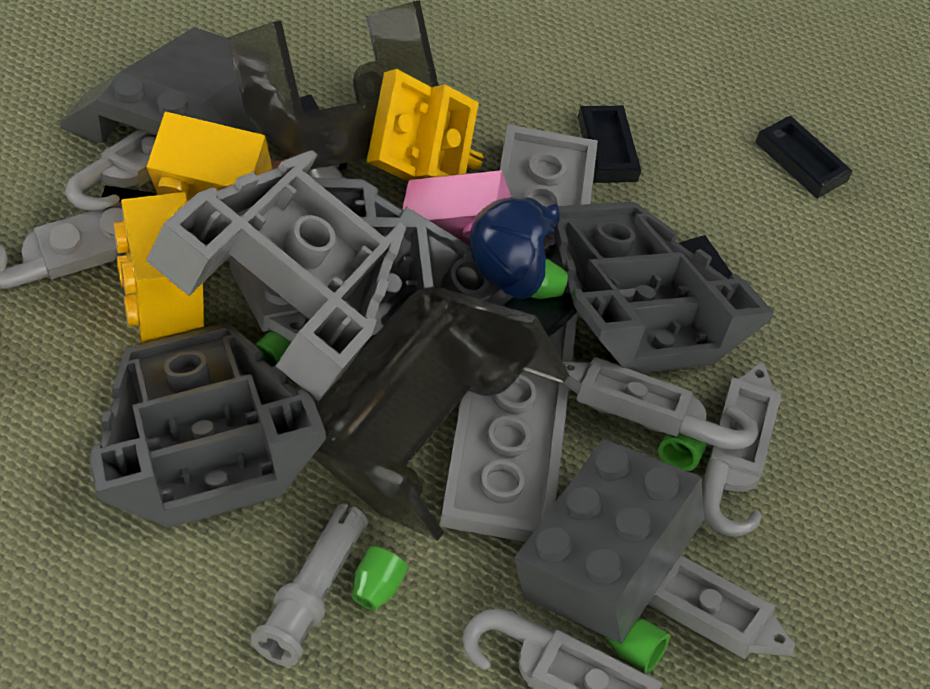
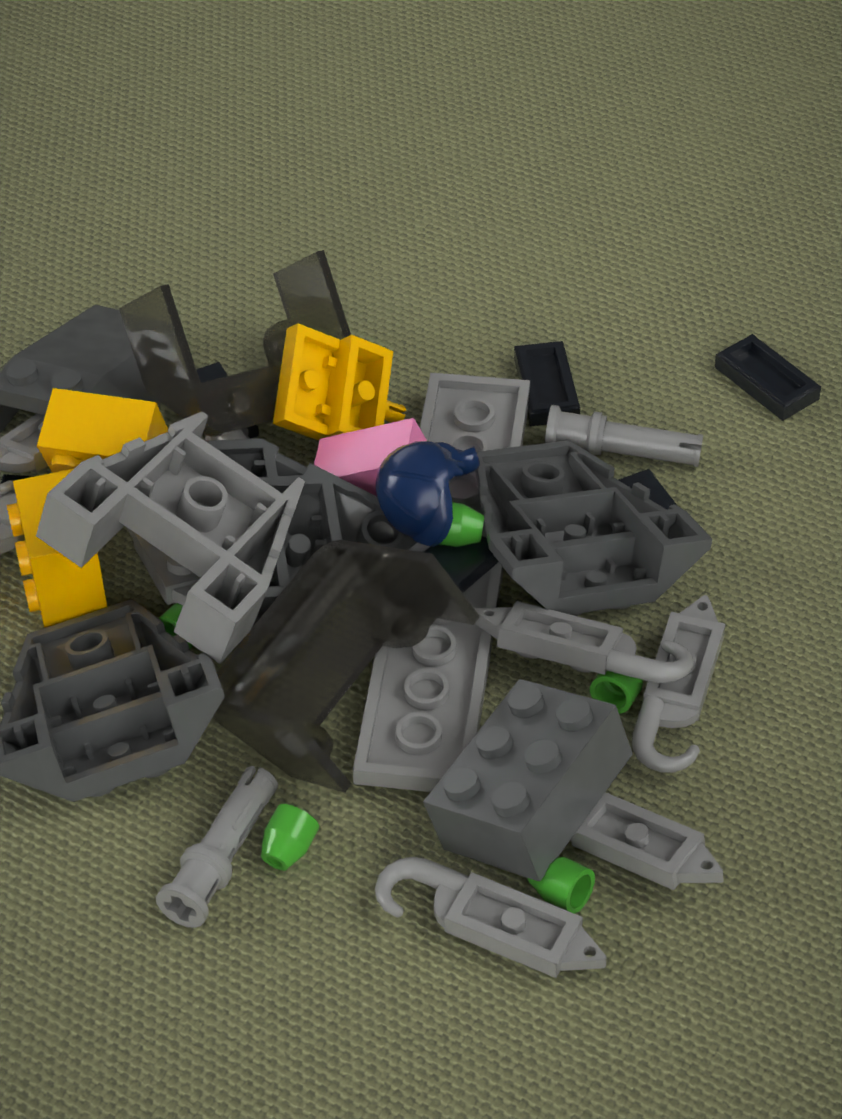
camera: 10 degrees right, 5 degrees down
(660, 198) = (599, 435): none -> light grey pin

